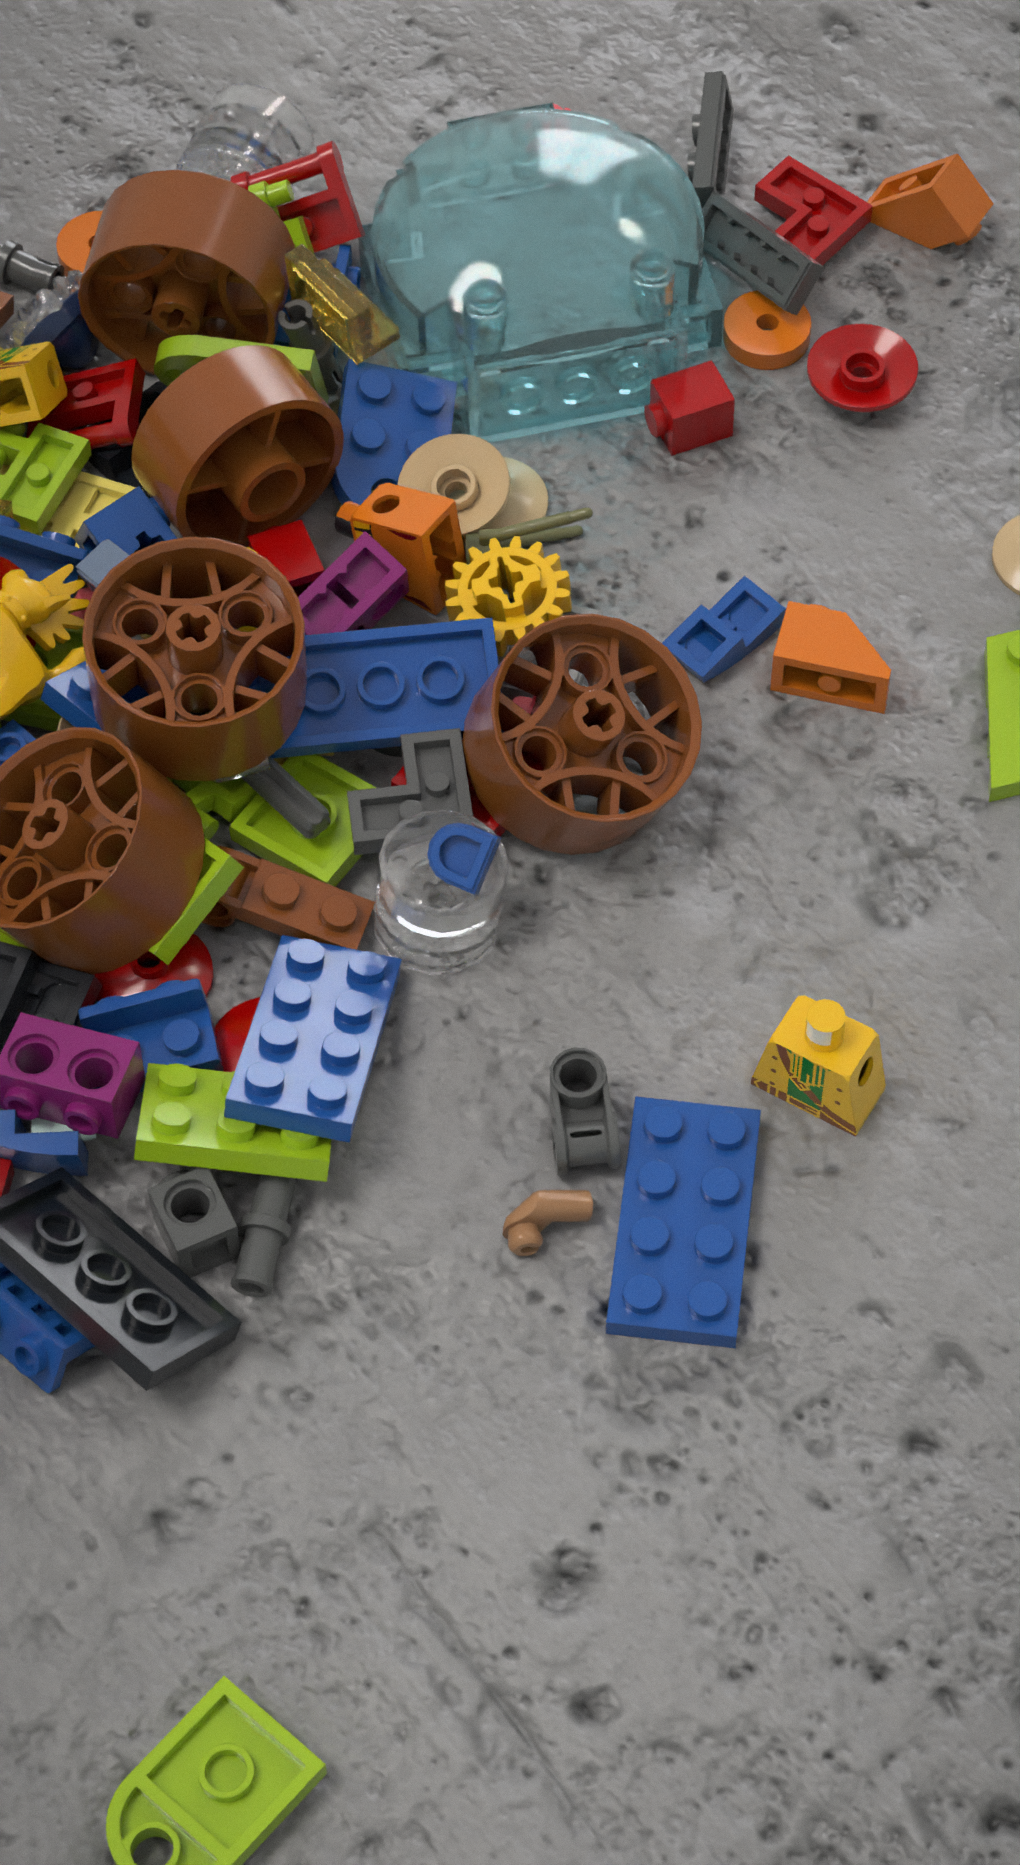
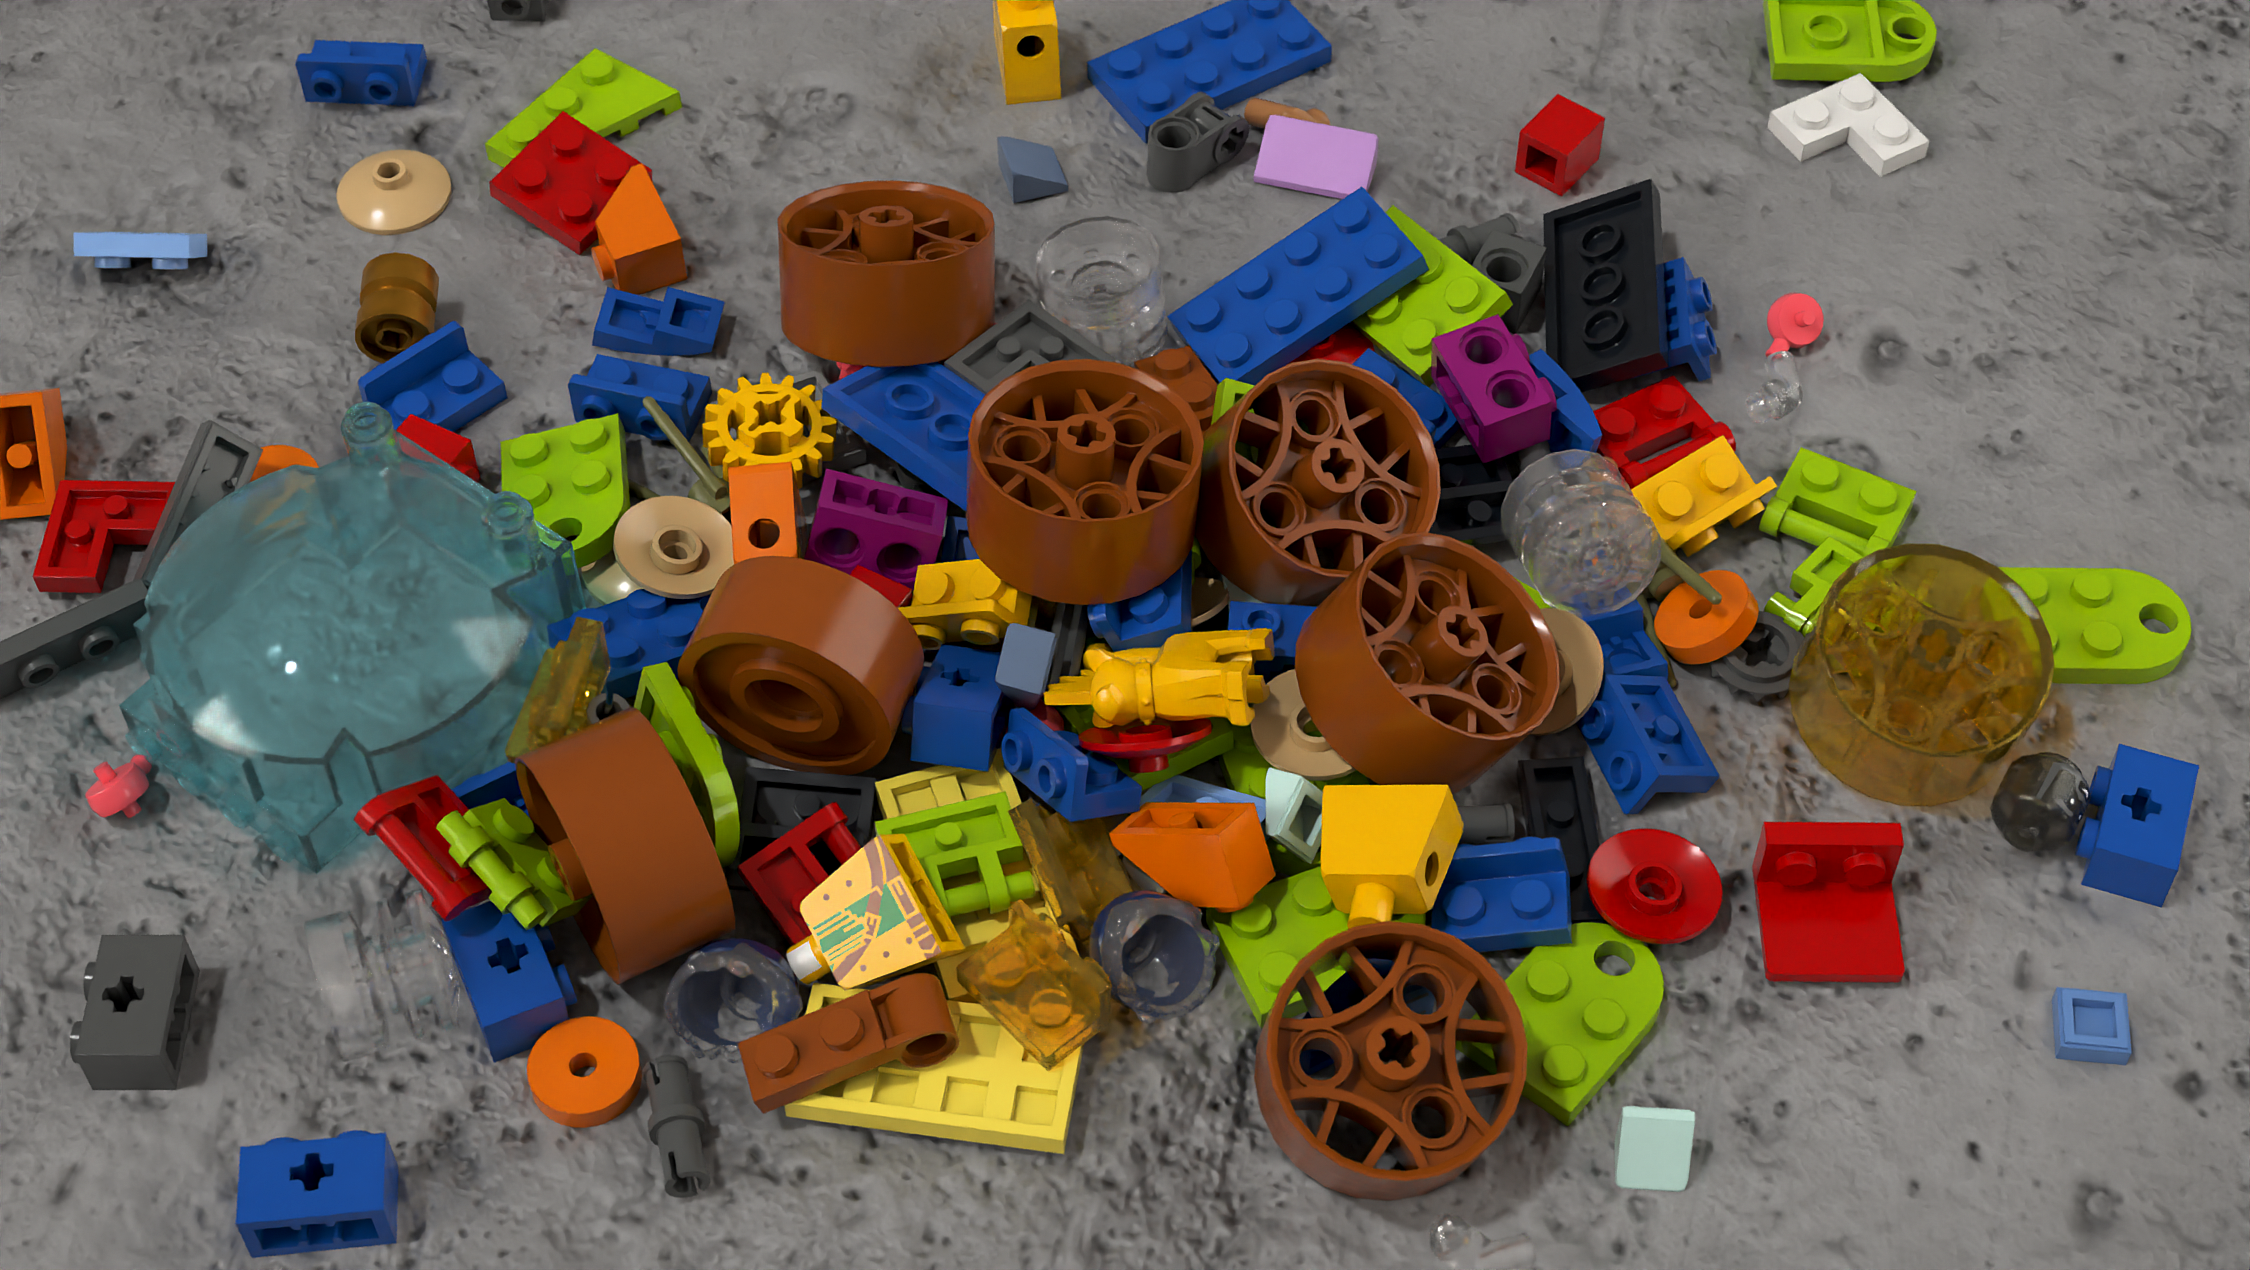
camera: 130 degrees left, 5 degrees down
(108, 1719) = (1852, 115): none -> white plate
(139, 83) = (317, 1194): none -> blue brick
(304, 1401) = (1559, 145): none -> red brick
(359, 62) = (136, 1012): none -> dark grey brick
(462, 855) = (1075, 256): blue tile -> none
(474, 1205) = (1315, 157): none -> lavender slope
(587, 467) = (573, 481): none -> lime plate
(650, 570) = (622, 384): none -> blue bracket
(668, 982) = (1029, 169): none -> sand blue slope
(776, 457) = (434, 381): none -> blue bracket
(862, 367) = (282, 382): red dish -> none
(869, 459) = (395, 304): none -> pearl gold wheel
(938, 652) = (564, 181): none -> red plate

